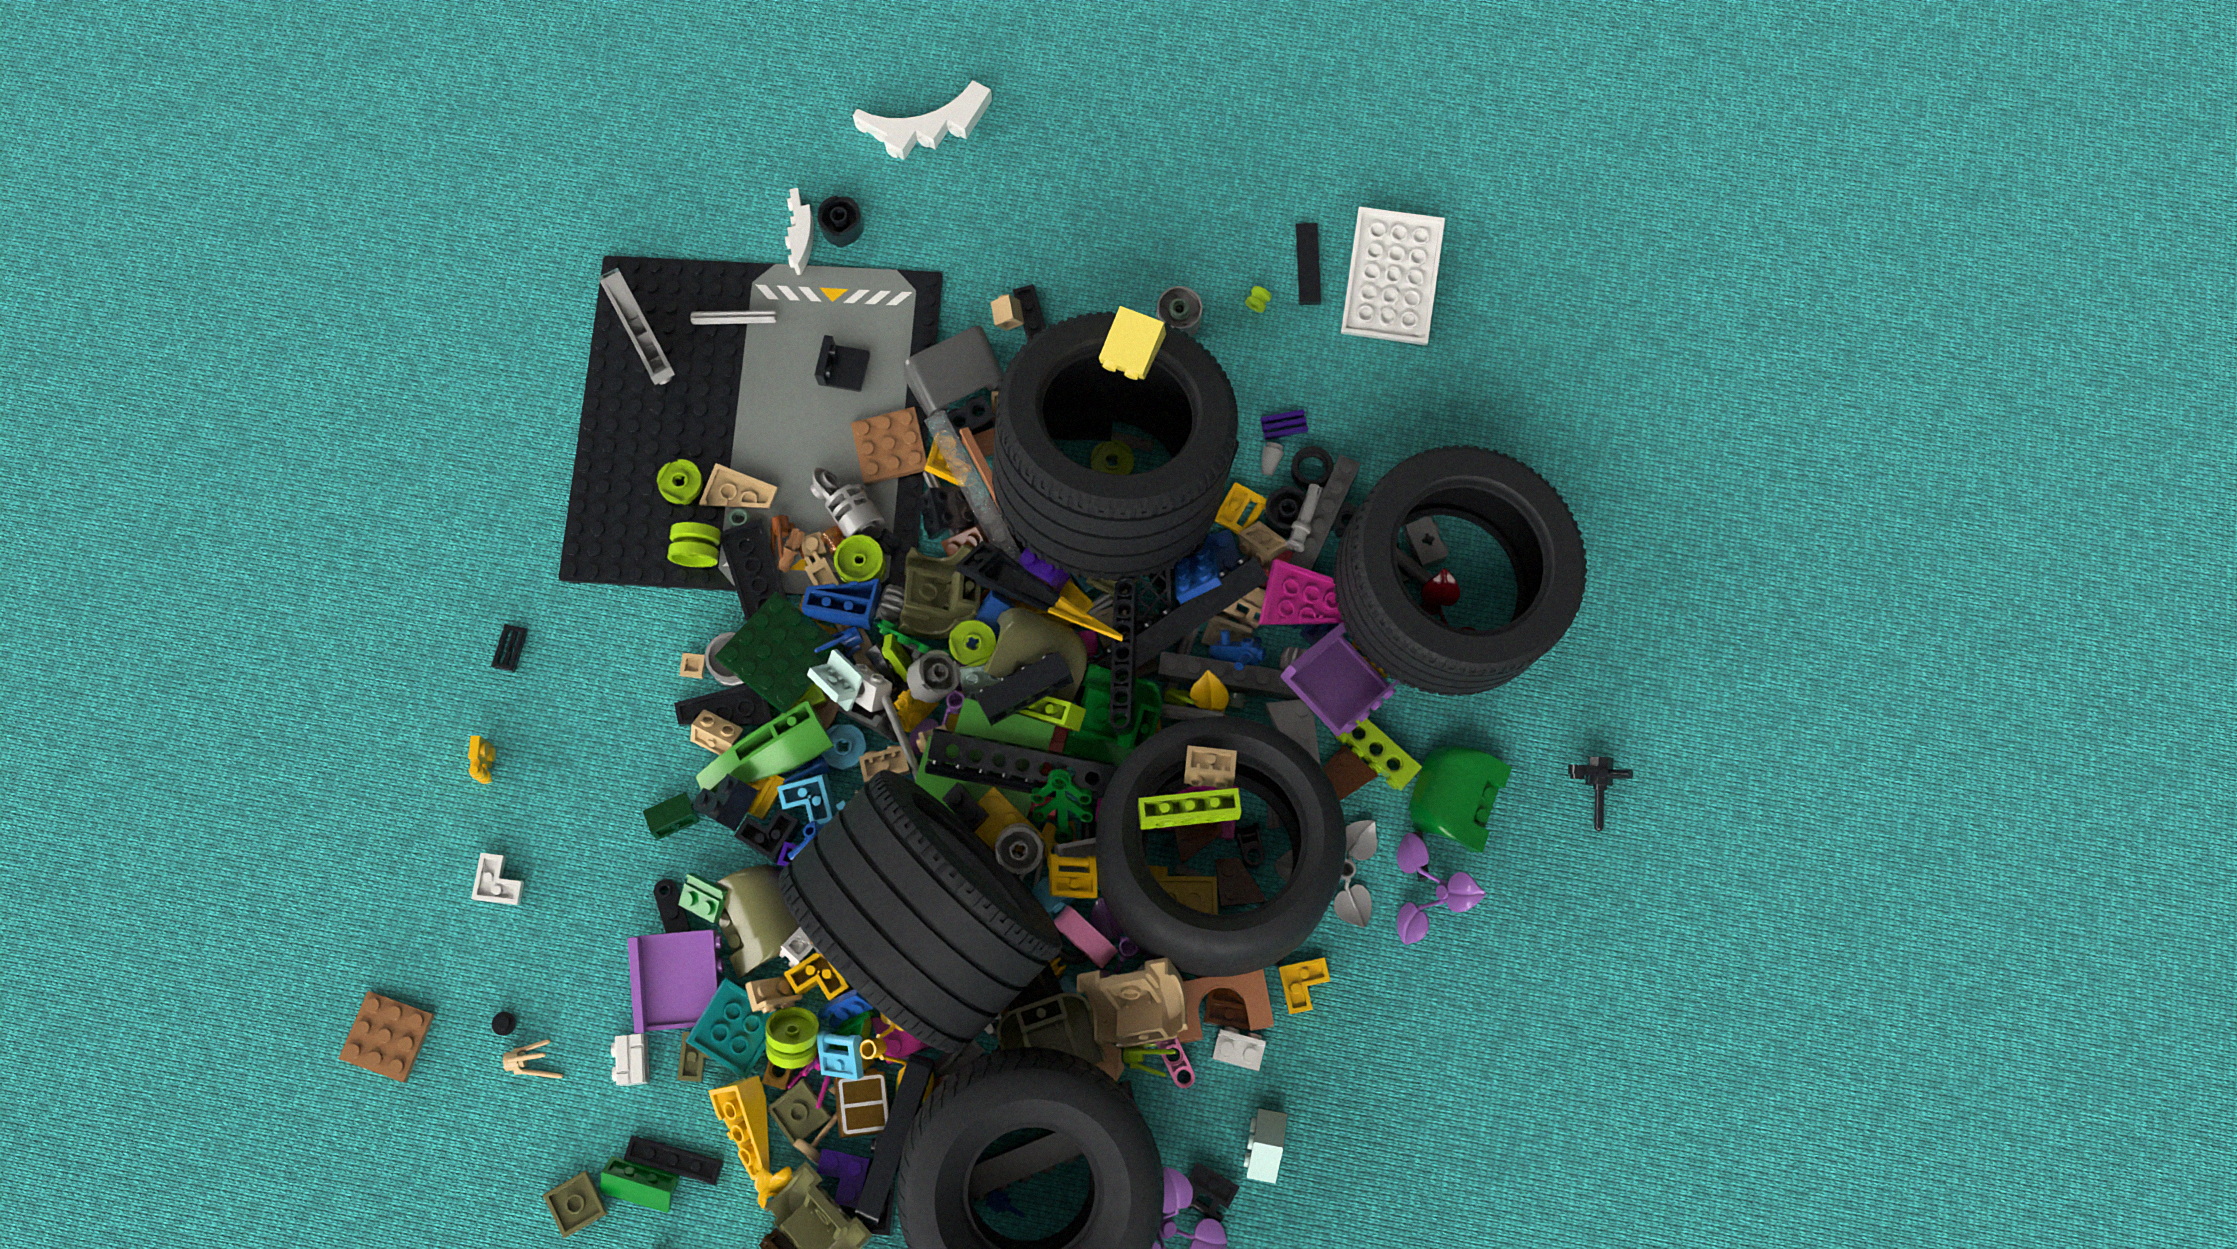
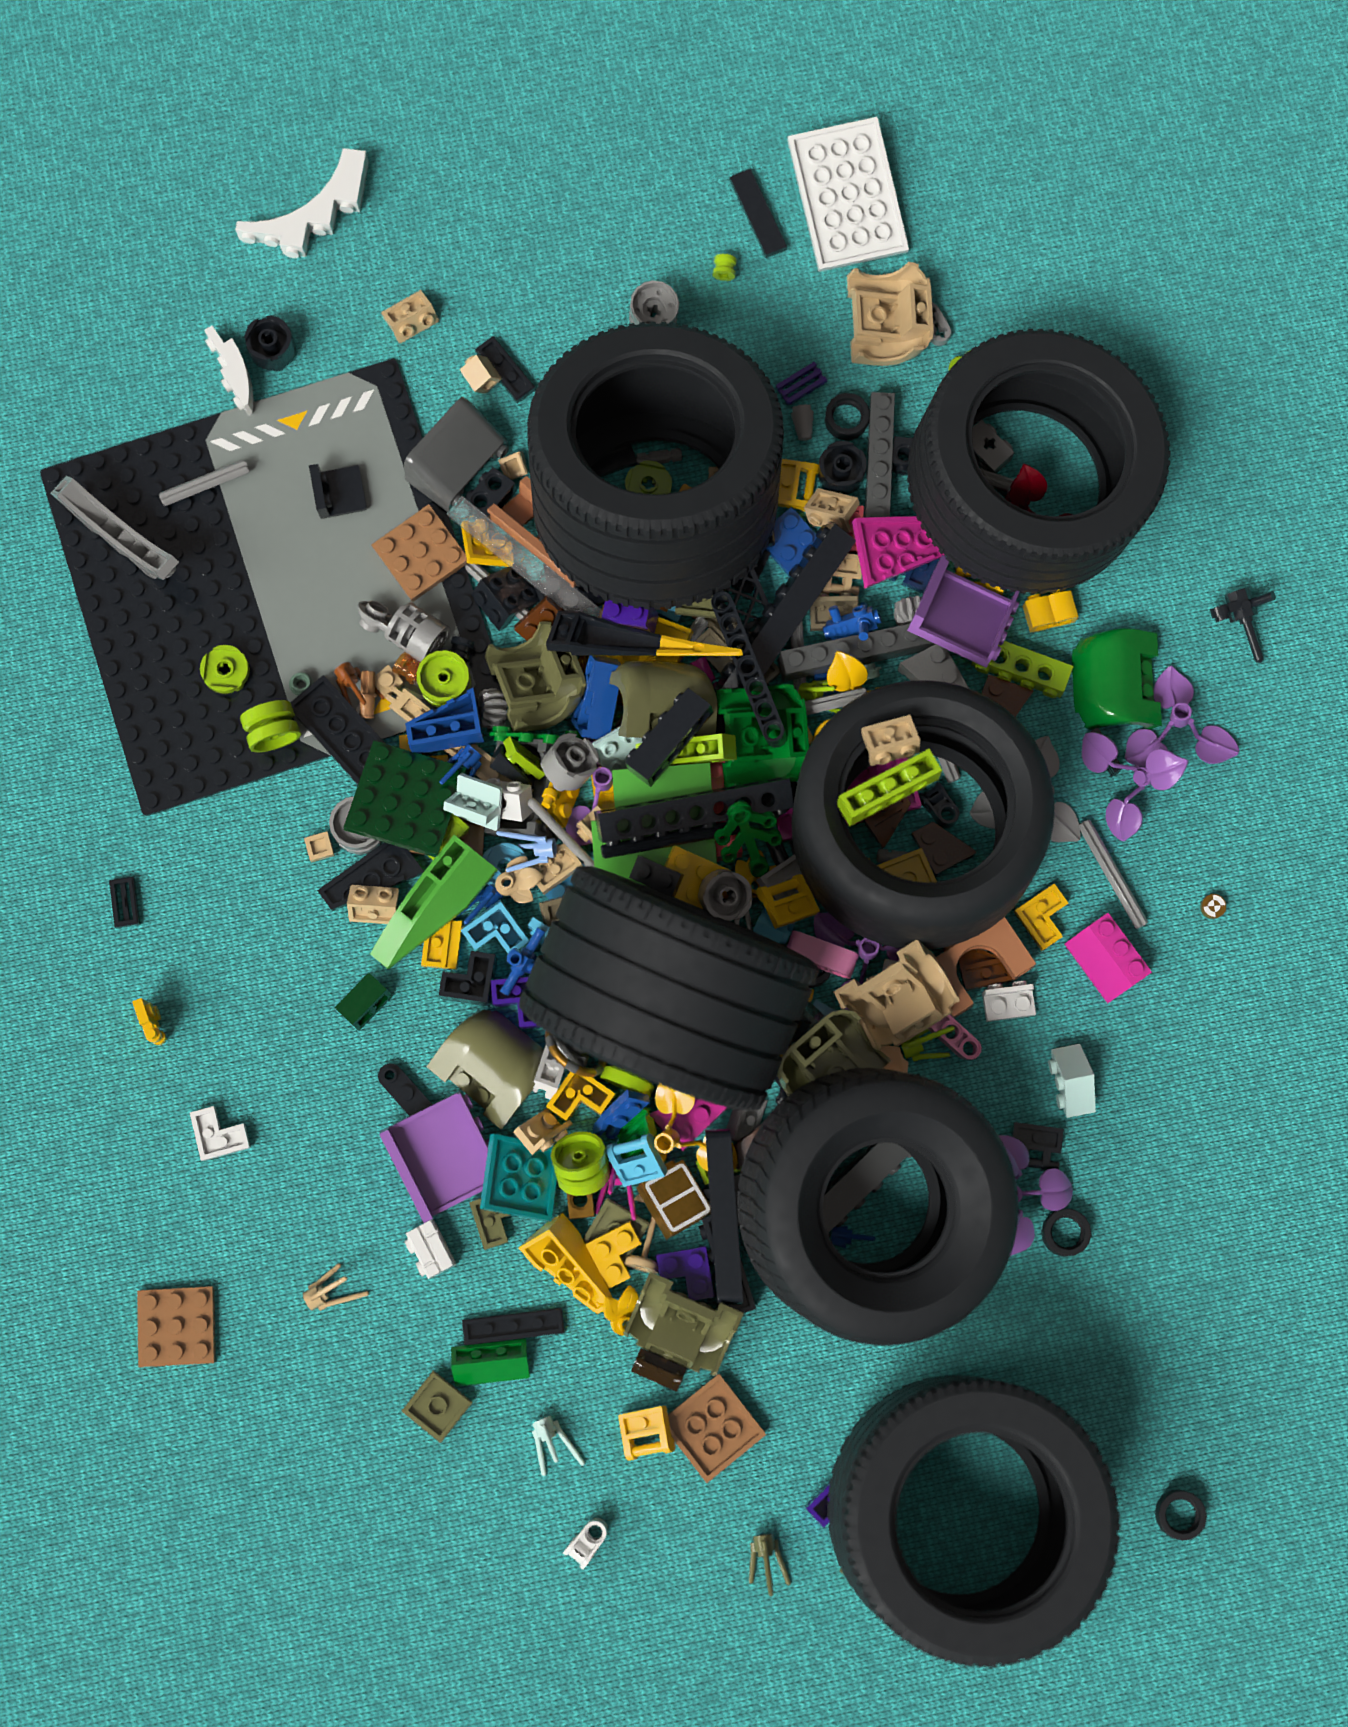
camera: 25 degrees left, 5 degrees up
(503, 1023) = (287, 1266): black plate -> none
(703, 897) = (433, 1066): plate -> none
(728, 803) = (418, 967): black brick -> none
(736, 489) = (286, 655): tan wing -> none
(783, 1126) = (607, 1252): none -> yellow plate
(851, 763) = (521, 881): none -> tan plate
(880, 741) = (542, 847): none -> light blue plant
(969, 242) = (410, 316): none -> tan bracket
(976, 630) = (582, 713): lime plate -> none
(1132, 343) = (643, 354): light yellow slope -> none
(1179, 303) = (654, 299): sand green plate -> none
(1197, 574) = (784, 563): blue plate -> none
(1301, 527) = (865, 478): light grey pin -> none
(1345, 1045) = (1107, 958): none -> dark pink slope
(1383, 971) = (1113, 874): none -> light grey axle
(1385, 394) = (890, 315): none -> tan piece
(1419, 417) = (942, 326): none -> light grey beam
(1423, 709) = (1050, 610): none -> yellow brick
(1463, 1037) = (1213, 906): none -> pearl gold tile
(1507, 828) = (1176, 691): none -> medium lavender plant

